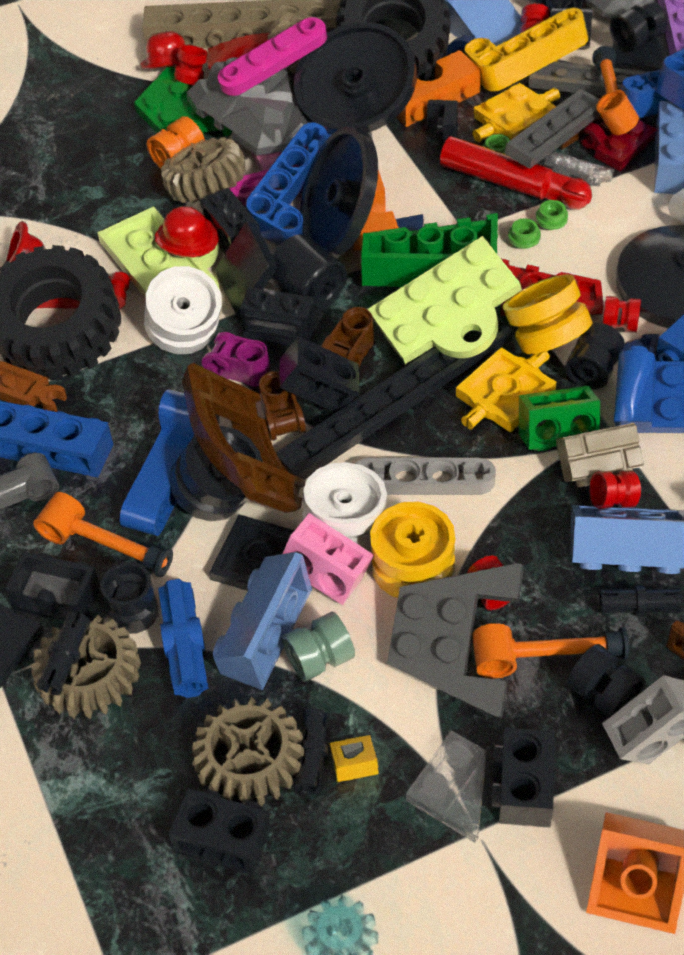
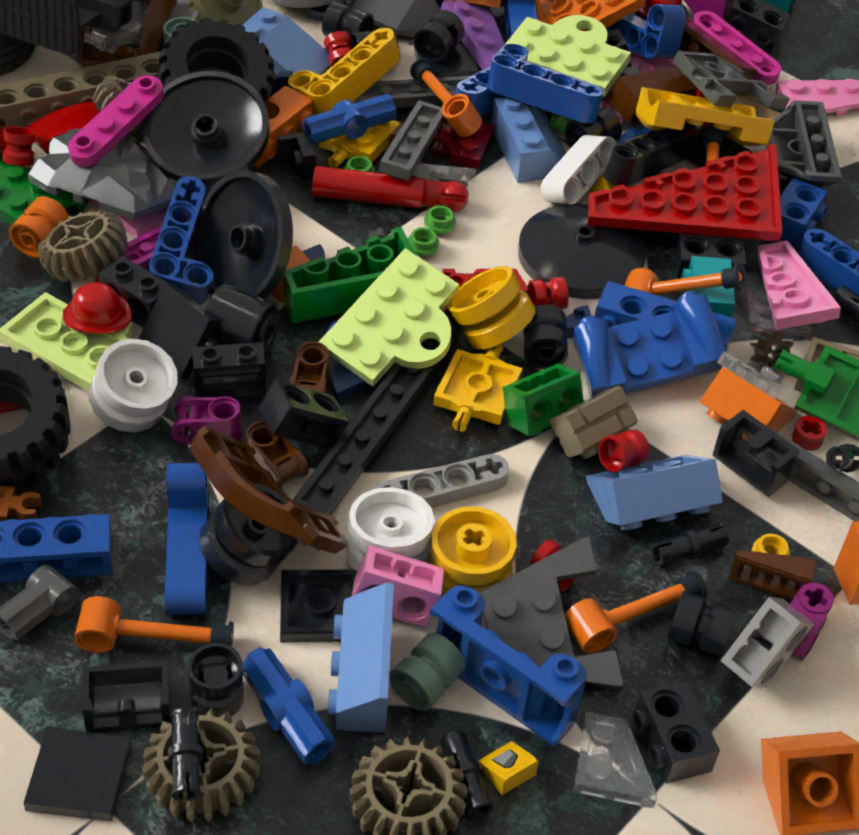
camera: 30 degrees left, 5 degrees down
(382, 354) = (346, 382): none -> dark blue tile
(411, 700) = (536, 696): none -> blue piece
(517, 94) = (350, 119): none -> blue piece

